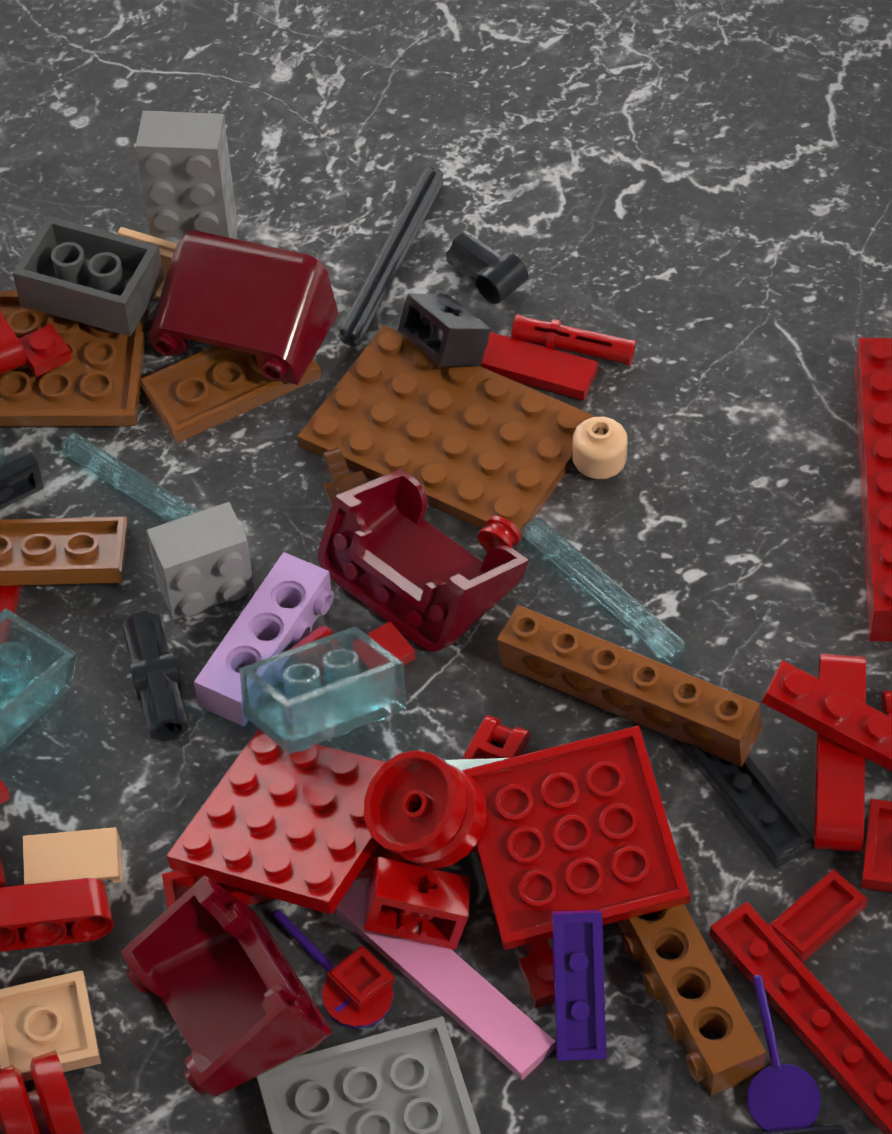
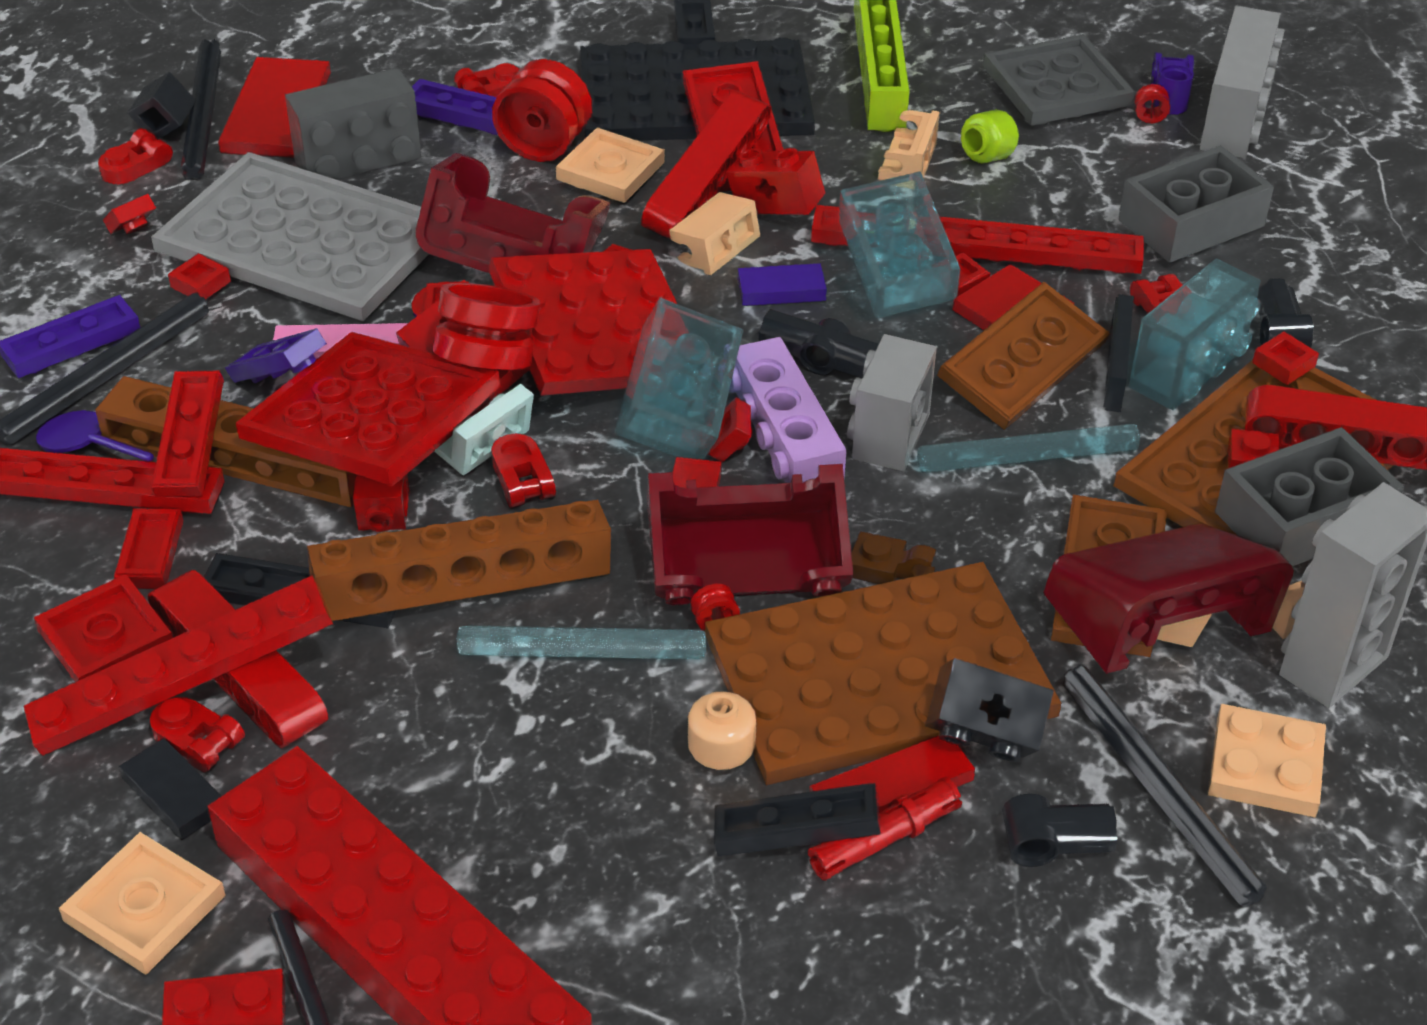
camera: 130 degrees right, 10 degrees down
(92, 773) = (781, 284): none -> dark purple tile
(320, 221) = (1267, 760): none -> light nougat plate
(619, 373) = (796, 819): none -> black tile
(718, 951) = (188, 433): none -> red tile

